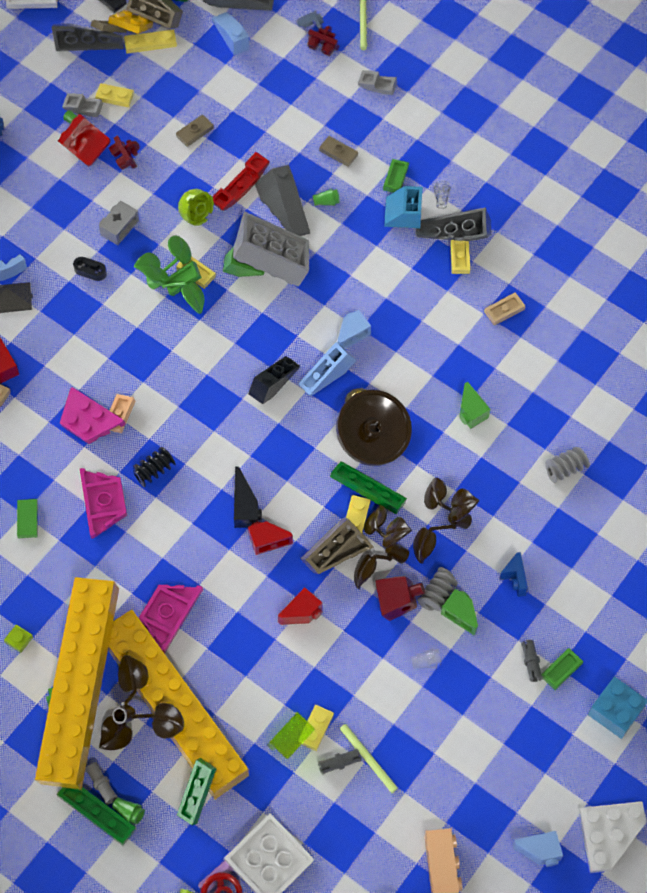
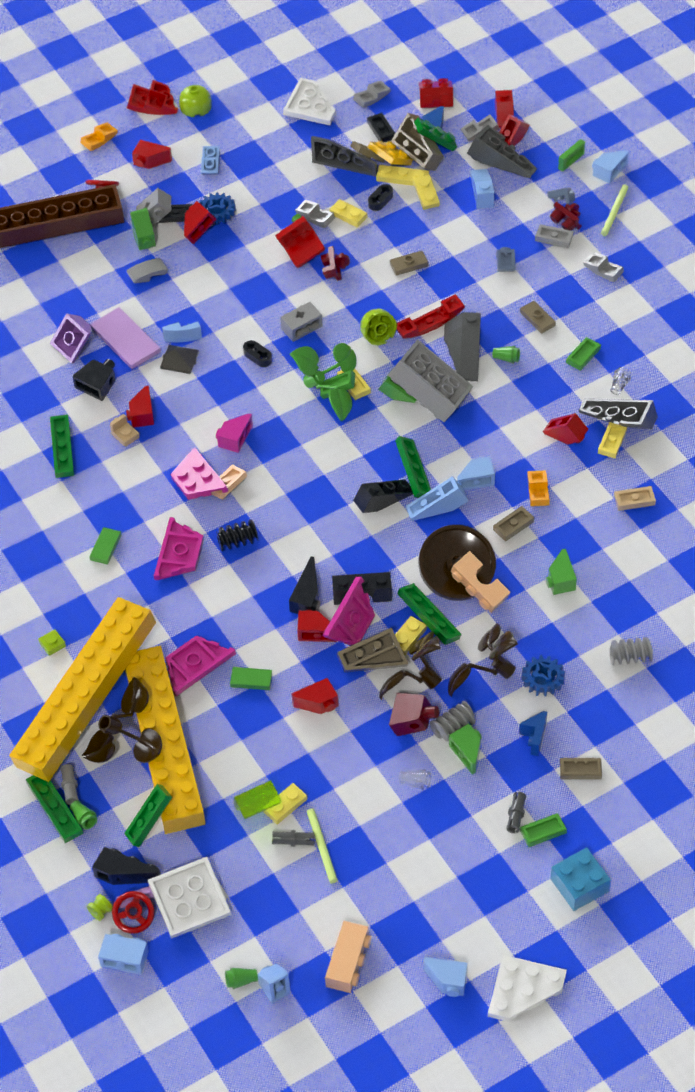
camera: 25 degrees right, 10 degrees down
(103, 360) = (234, 432): none -> dark pink slope
(134, 69) = (378, 195): none -> black beam
(180, 52) = (426, 192): none -> light yellow plate
(188, 854) = (120, 869): none -> black slope
(228, 610) = (251, 678): none -> bright green tile
(285, 101) = (505, 259): none -> sand blue bracket
(290, 341) = (413, 466): none -> green plate
(301, 516) = (352, 616): none -> dark pink wing
(306, 476) = (375, 584): none -> black arch
(319, 64) = (554, 236): none -> light grey plate
(389, 436) = (489, 595): none -> light nougat arch
(404, 208) = (577, 382): dark azure slope -> none
(406, 369) = (513, 523): none -> dark tan plate
(412, 326) = (538, 488): none -> light orange slope
(414, 258) = (566, 429): none -> red slope
(499, 519) = (542, 676): none -> blue gear
(570, 596) = (580, 768): none -> dark tan plate

